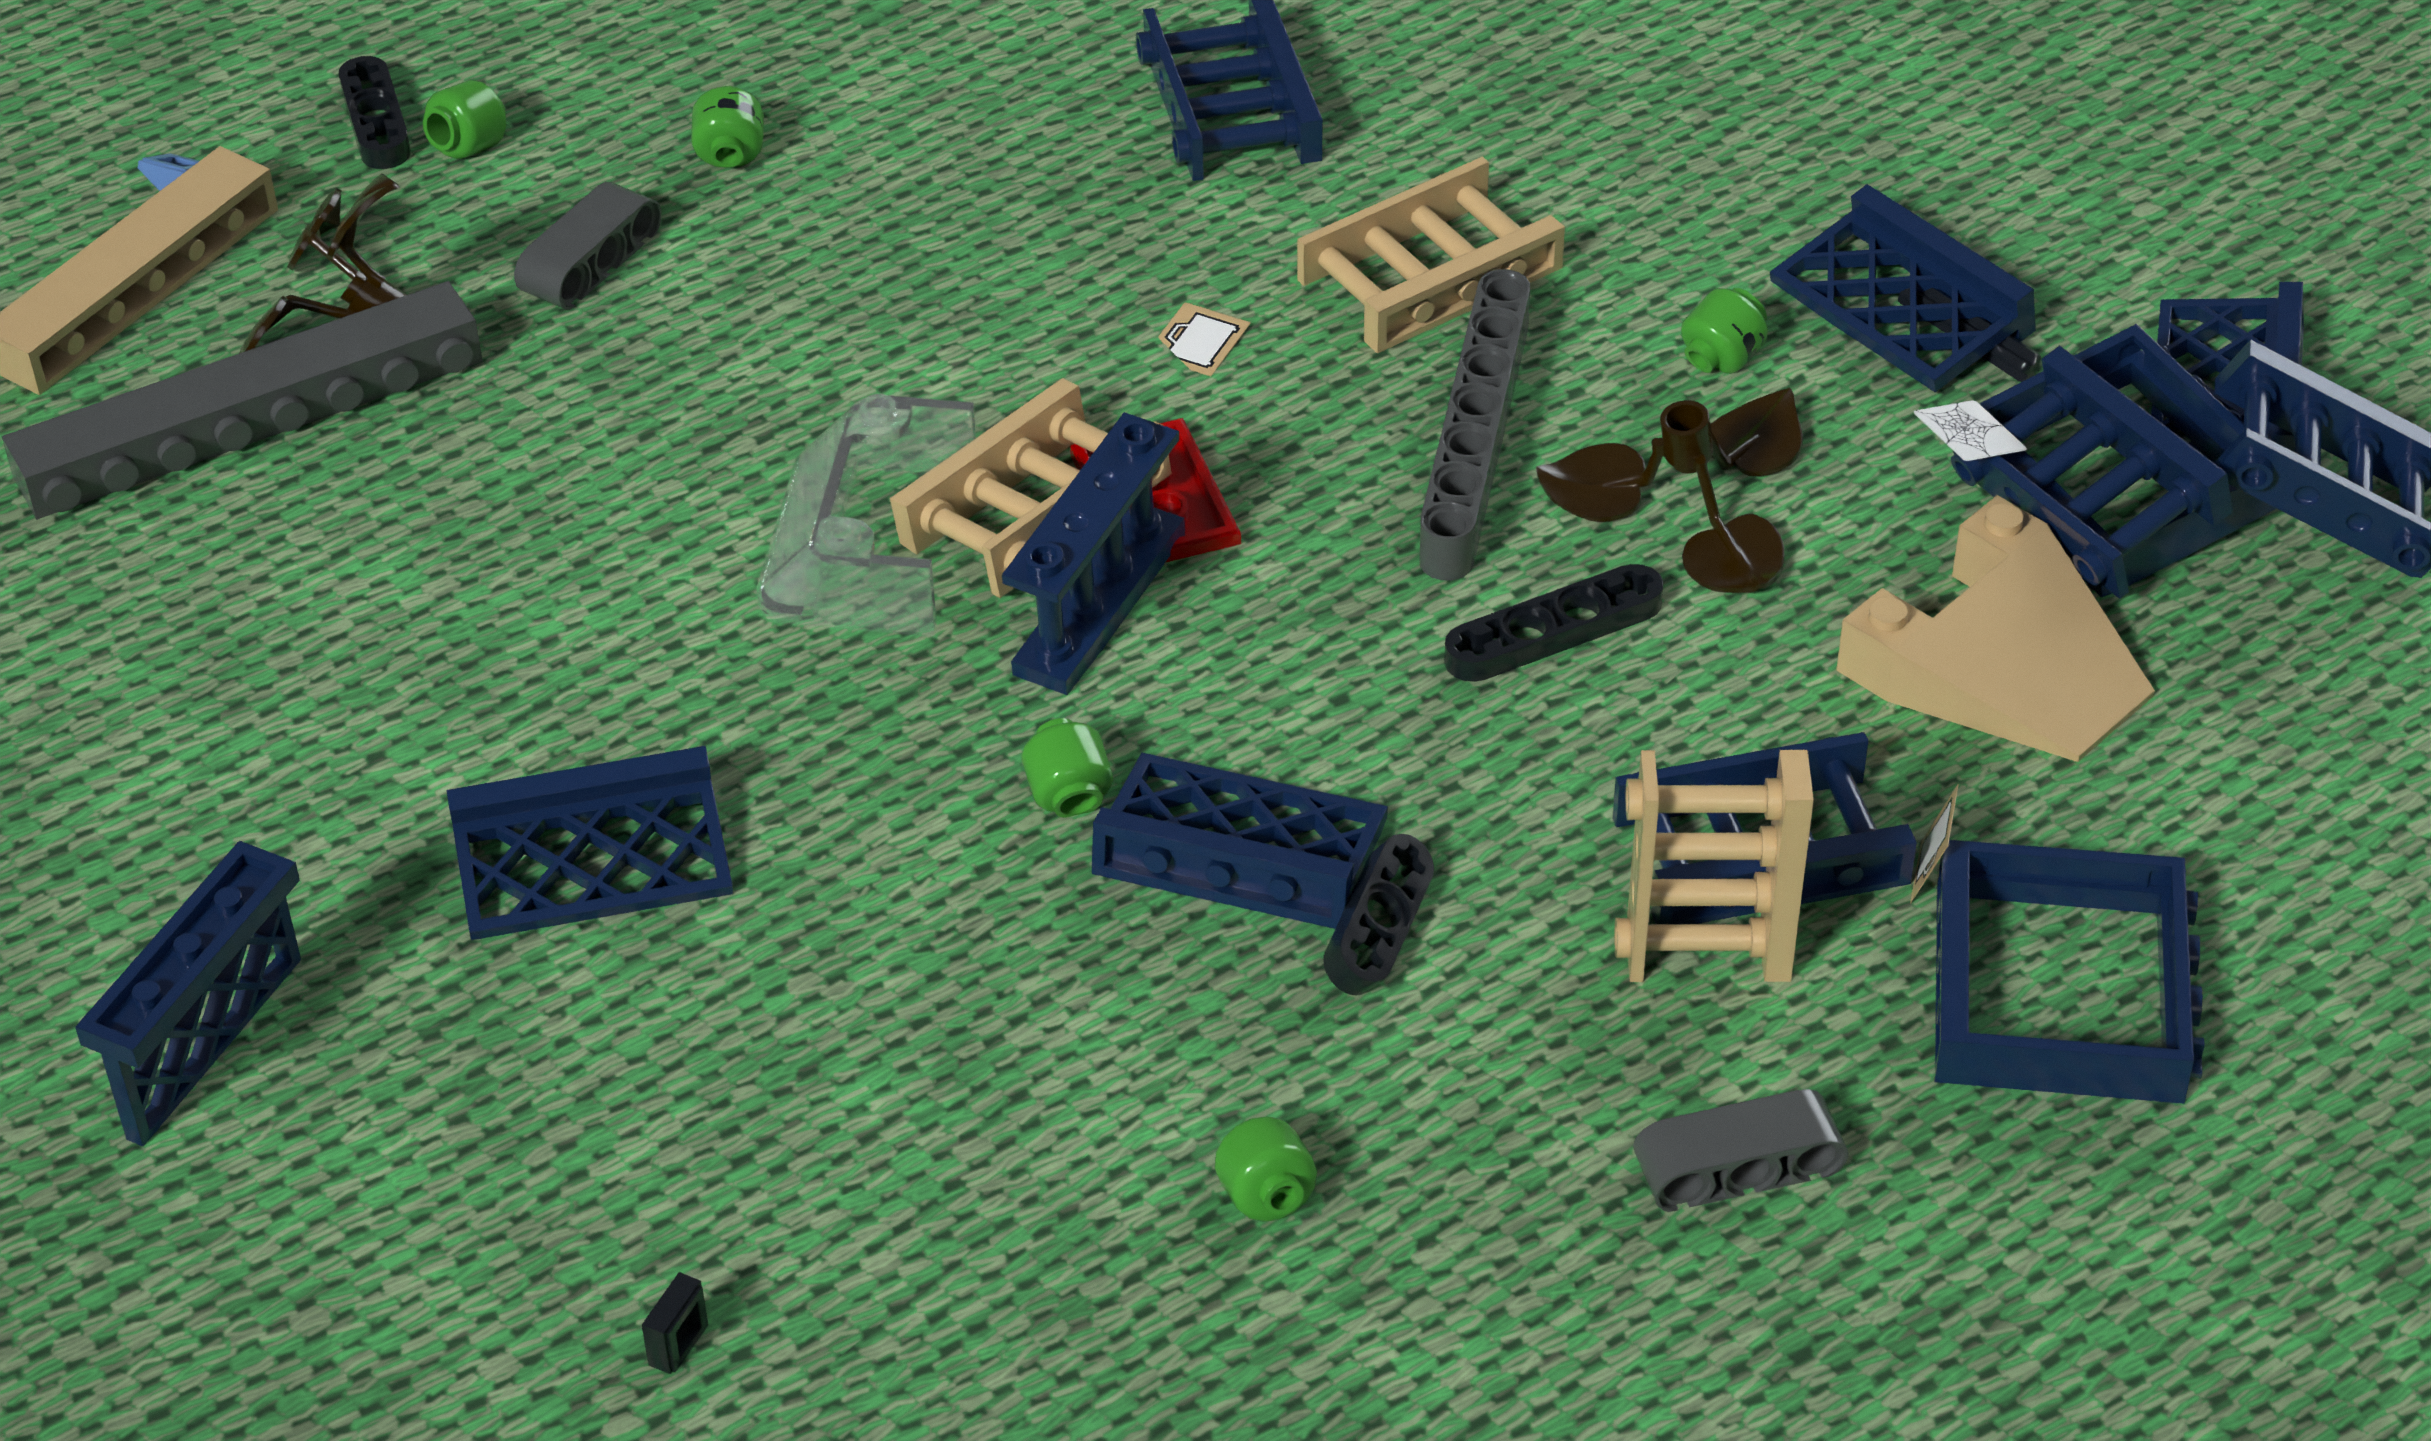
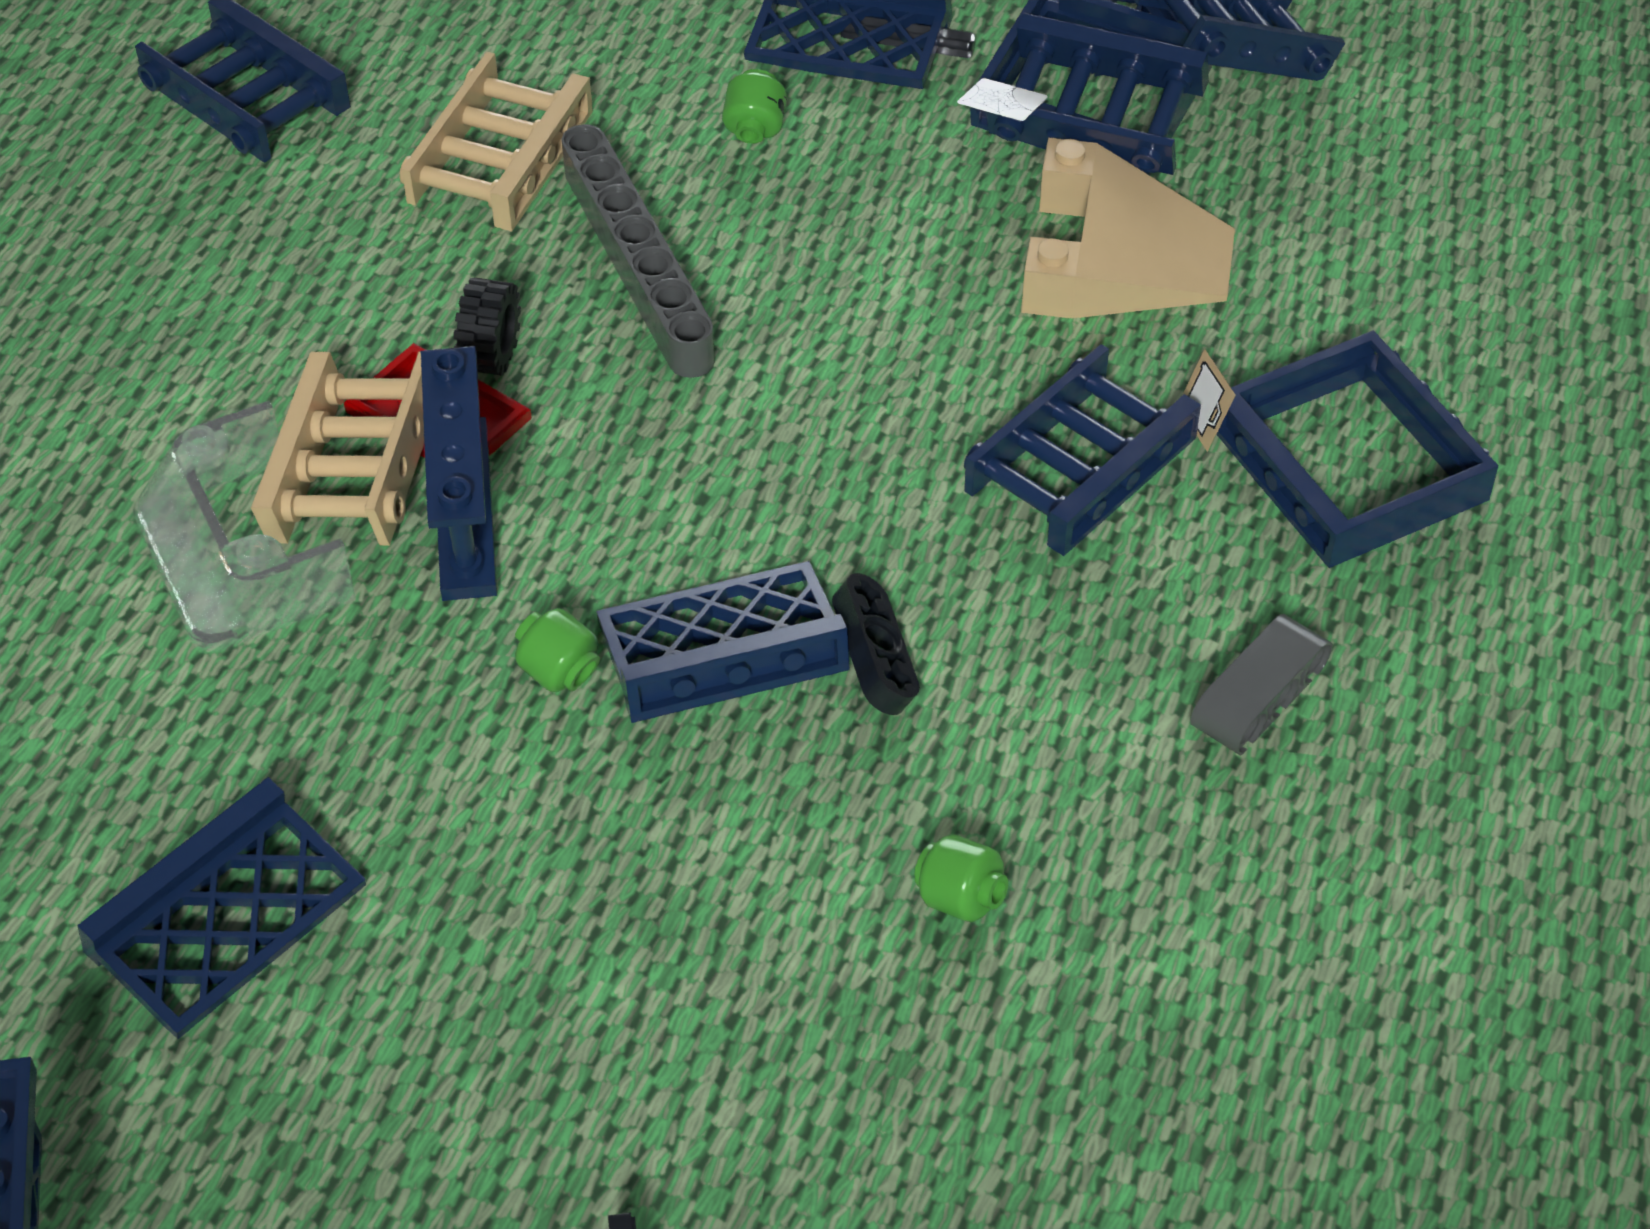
camera: 35 degrees left, 5 degrees up
(1202, 337) = (371, 276): sticker -> none
(1252, 429) = (489, 323): none -> black tyre
(1549, 617) = (805, 368): black beam -> none
(1756, 437) = (823, 180): dark brown plant -> none
(1772, 893) = (1155, 500): tan fence -> none

